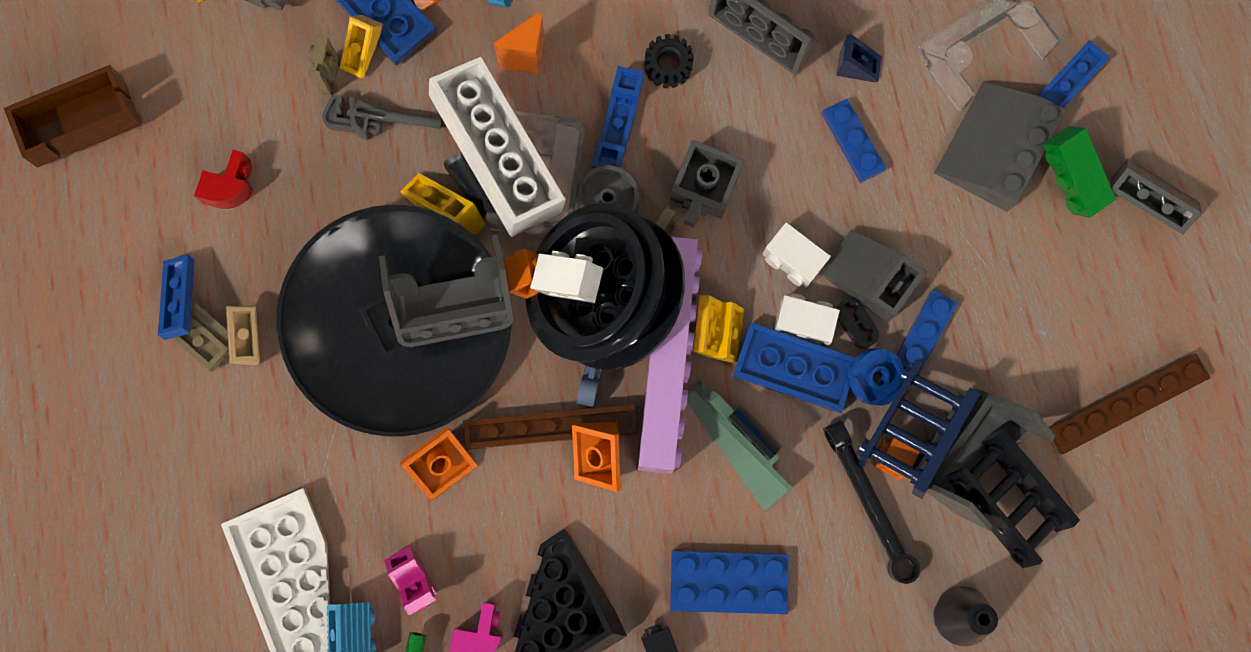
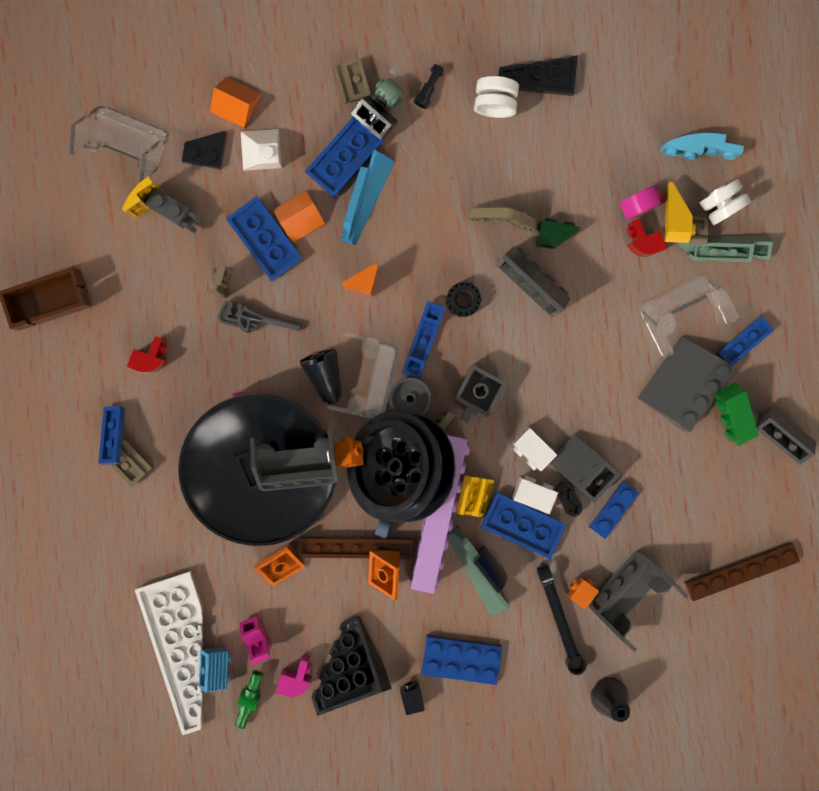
camera: 10 degrees right, 10 degrees up
(243, 335) = (155, 466): tan slope -> none
(360, 44) = (248, 265): yellow slope -> none
(435, 197) = (296, 388): yellow slope -> none
(496, 146) = (336, 362): white brick -> none
(567, 277) = (376, 465): white brick -> none
(853, 140) = (585, 370): blue plate -> none
(858, 61) = (597, 314): dark blue slope -> none
(862, 373) = (570, 532): blue plate -> none
(934, 453) = (606, 598): dark blue fence -> none
(1030, 481) = (670, 627): black fence -> none

